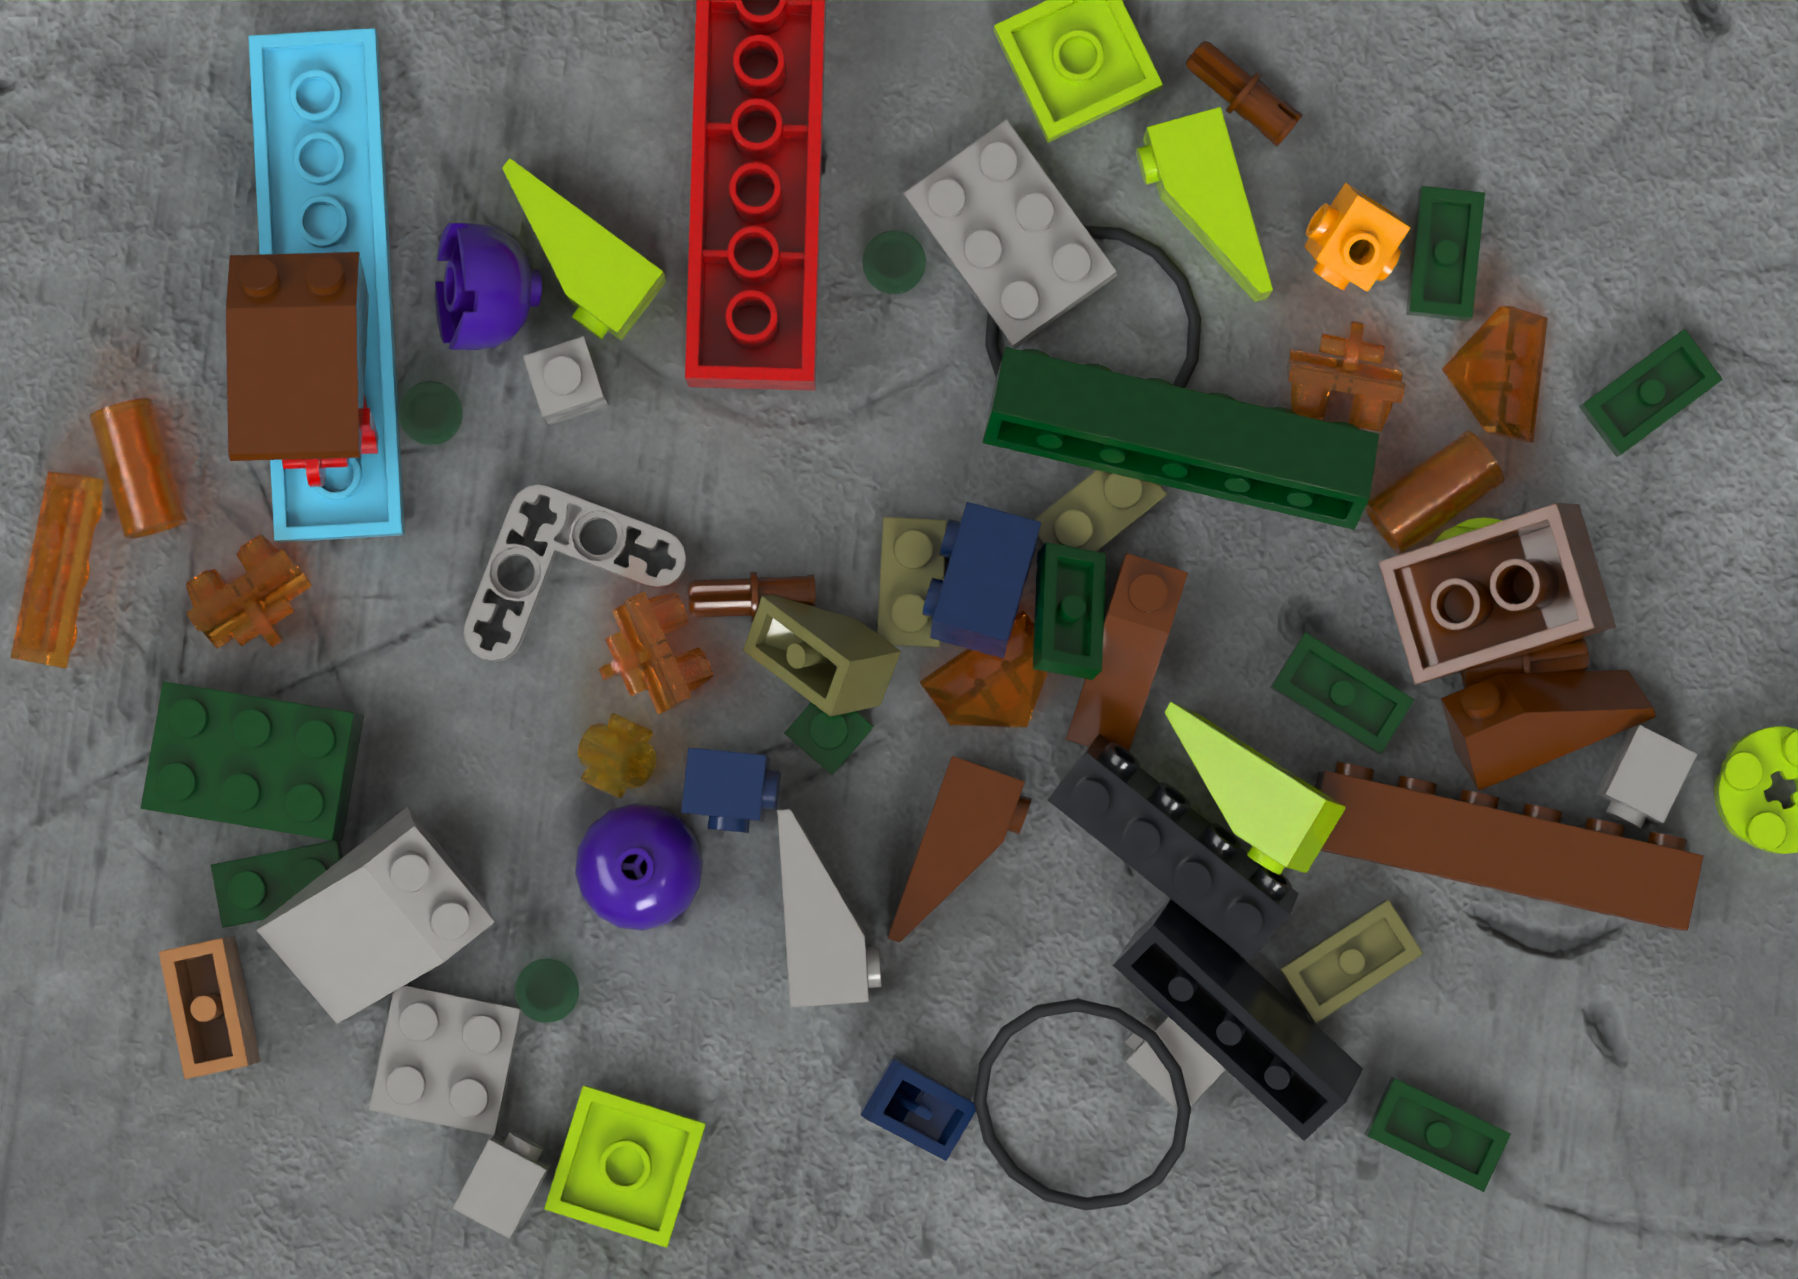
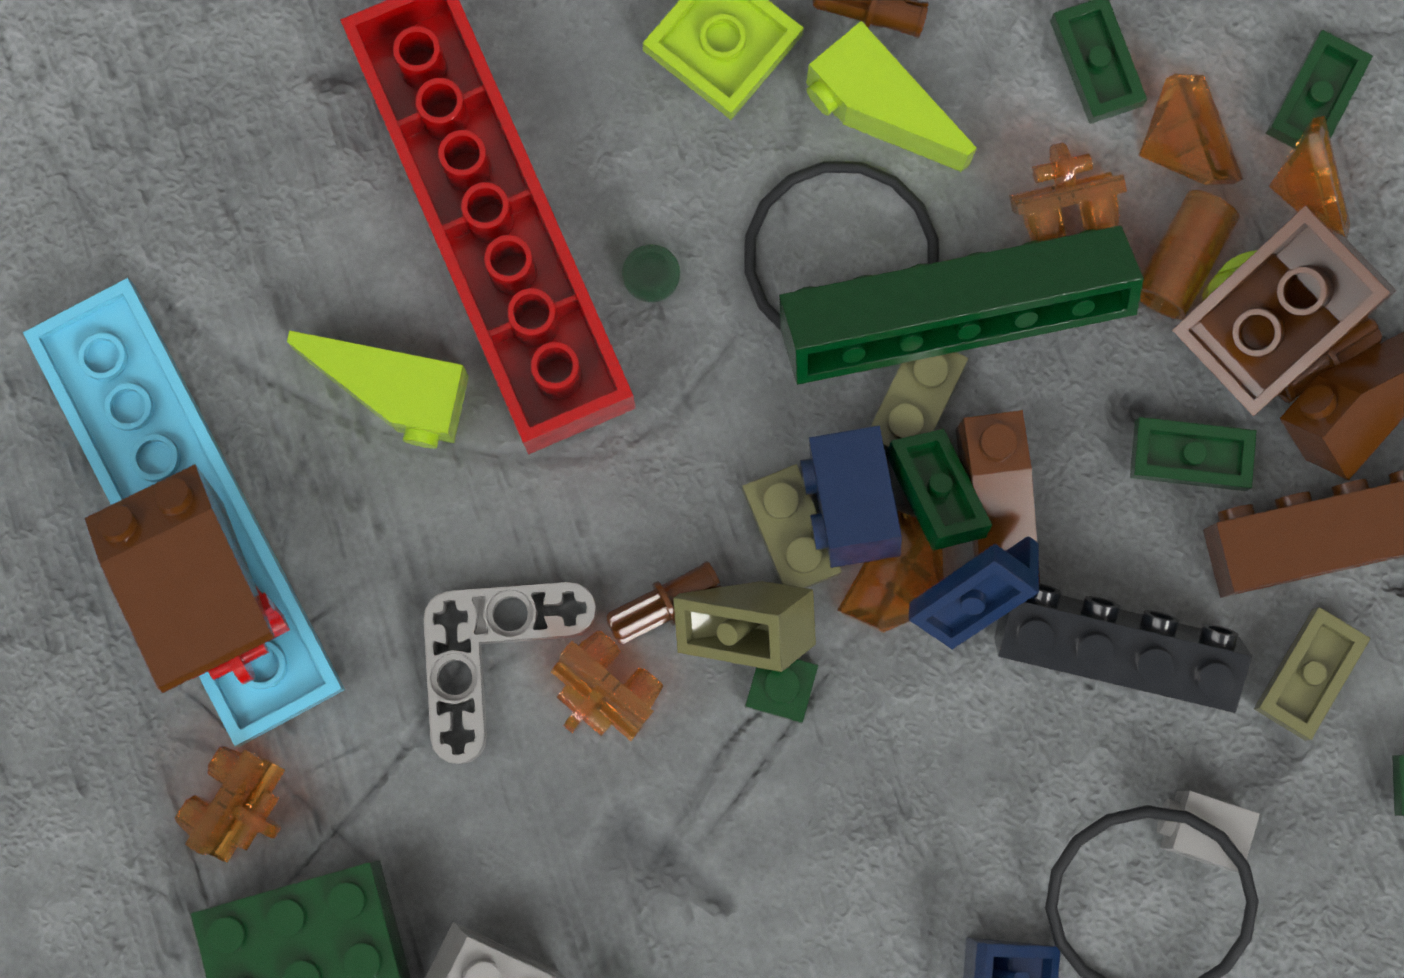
camera: 25 degrees left, 5 degrees down
(58, 569) = (58, 859): clear orange plate -> none
(138, 468) = (89, 739): clear orange pin -> none
(431, 413) = (320, 576): clear green plate -> none
(483, 287) = (317, 447): dark purple cylinder -> none
(565, 380) = (422, 495): light grey brick -> none
(616, 755) = (613, 792): clear yellow gear -> none
(671, 860) = (682, 847): dark purple cylinder -> none
(729, 788) = (725, 773): dark blue brick -> none
(823, 936) = (868, 868): light grey slope -> none
(962, 832) = (936, 715): reddish brown slope -> none
(1010, 234) = (736, 206): light grey plate -> none
(1056, 730) = (978, 593): none -> dark blue panel
(1239, 1019) = (1248, 766): black brick -> none
(1258, 797) = (1179, 572): lime slope -> none
(1354, 240) = (1022, 78): light orange brick -> none
(1598, 479) = (1312, 177): none -> clear orange slope

